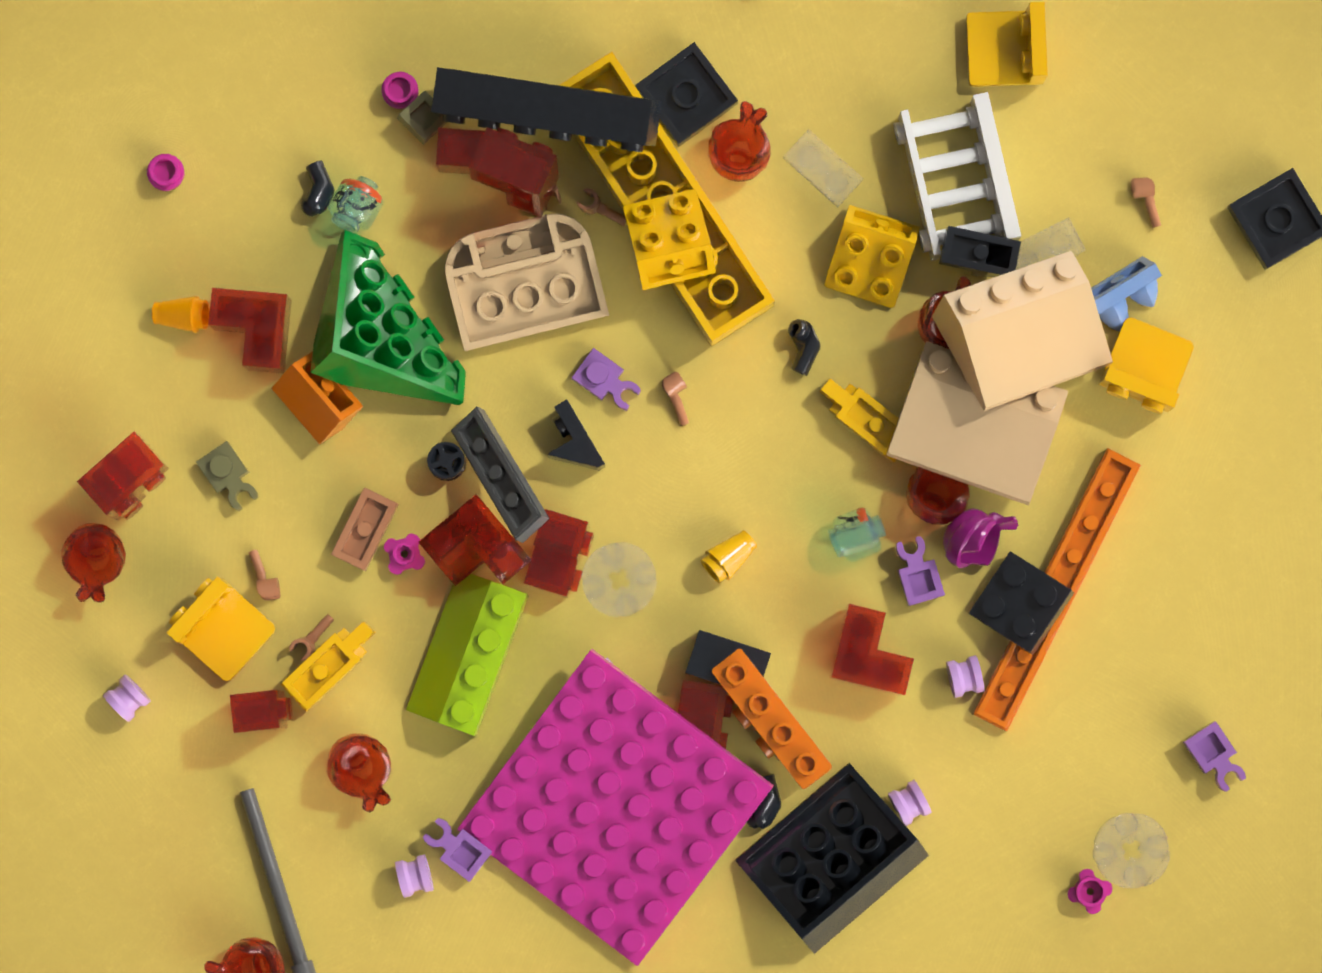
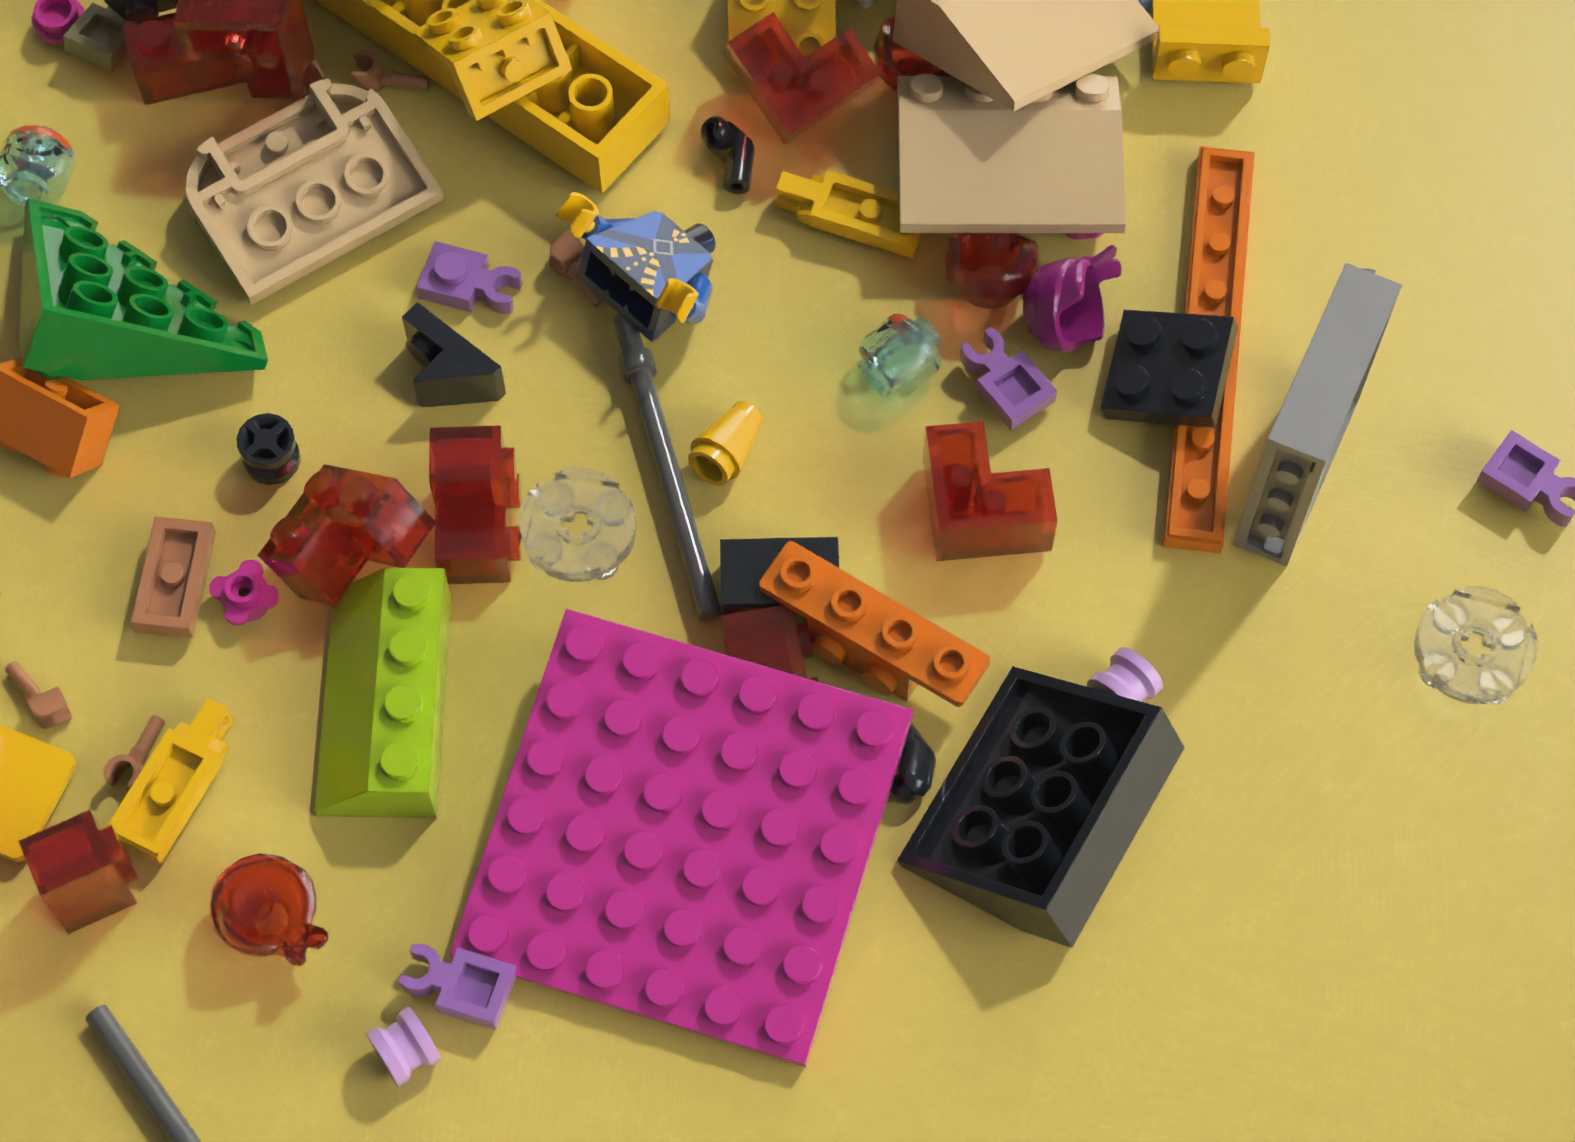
camera: 20 degrees left, 20 degrees down
(500, 474) = (352, 423): dark grey tile -> none
(691, 481) = (638, 370): none -> dark grey bar
(720, 422) = (643, 265): none -> torso
(863, 325) = (797, 89): none -> clear red brick
(965, 676) = (1132, 489): lavender wheel -> none
(1087, 689) = (1316, 413): none -> light grey window
(1091, 902) = (1449, 709): dark pink plate -> none

